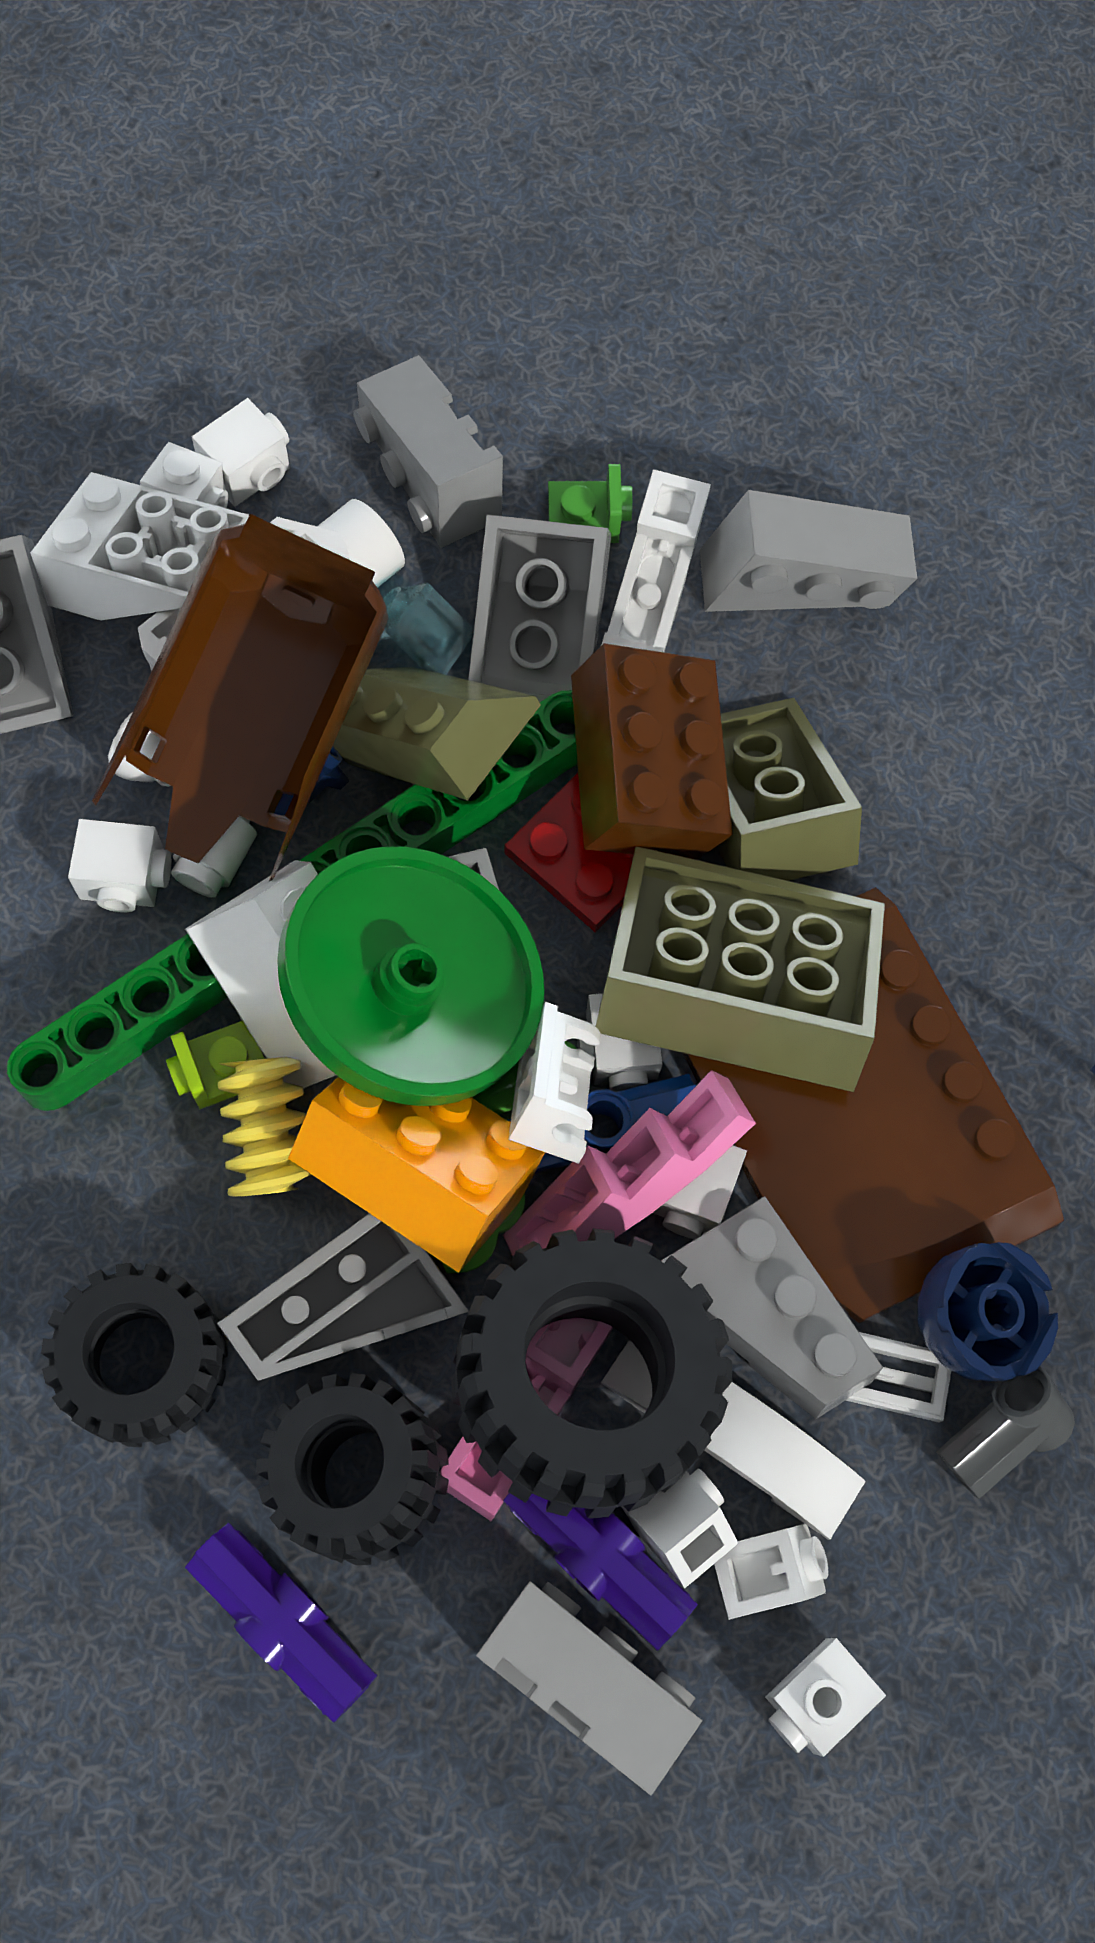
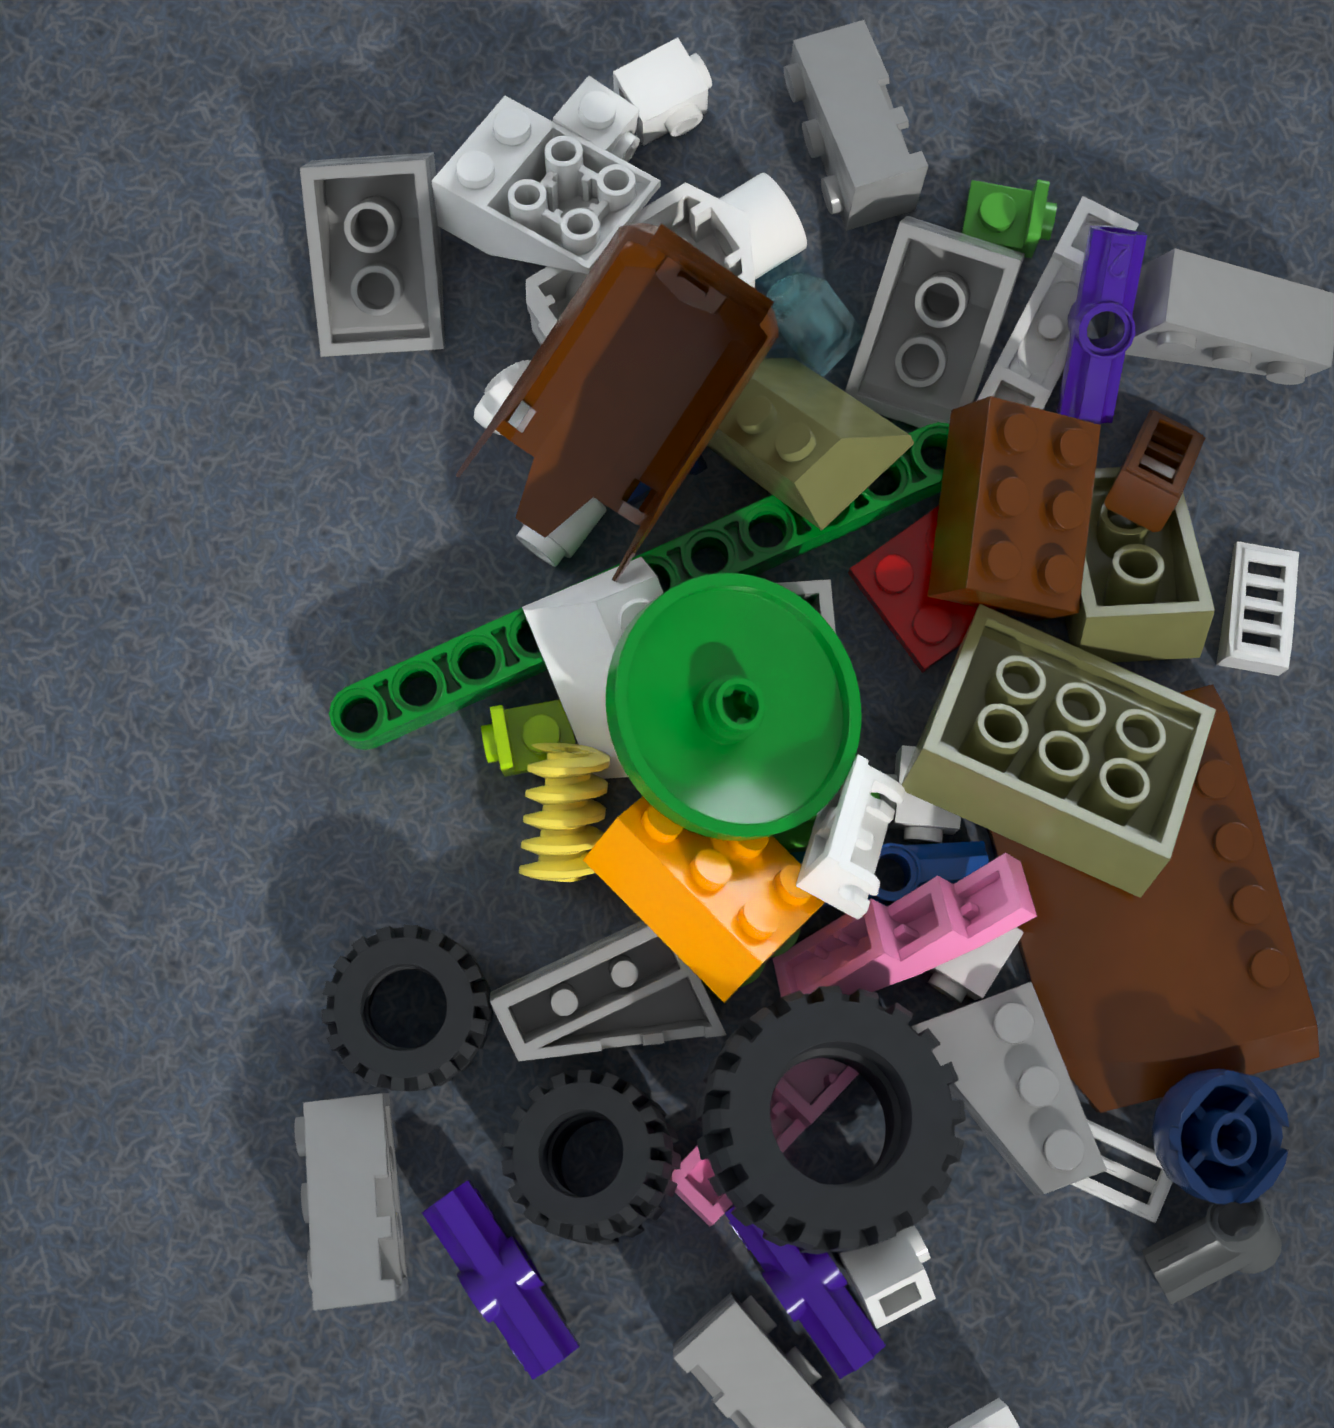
camera: 15 degrees right, 10 degrees up
(107, 1569) = (351, 1202): none -> light grey wedge
(118, 864) = (466, 518): white brick -> none
(696, 535) = (1106, 284): none -> dark purple piece
(761, 1449) = (975, 1215): white slope -> none
(772, 1571) = (962, 1329): white bracket -> none
(775, 703) = (1153, 475): none -> reddish brown slope
(903, 855) = (1253, 657): none -> white slope

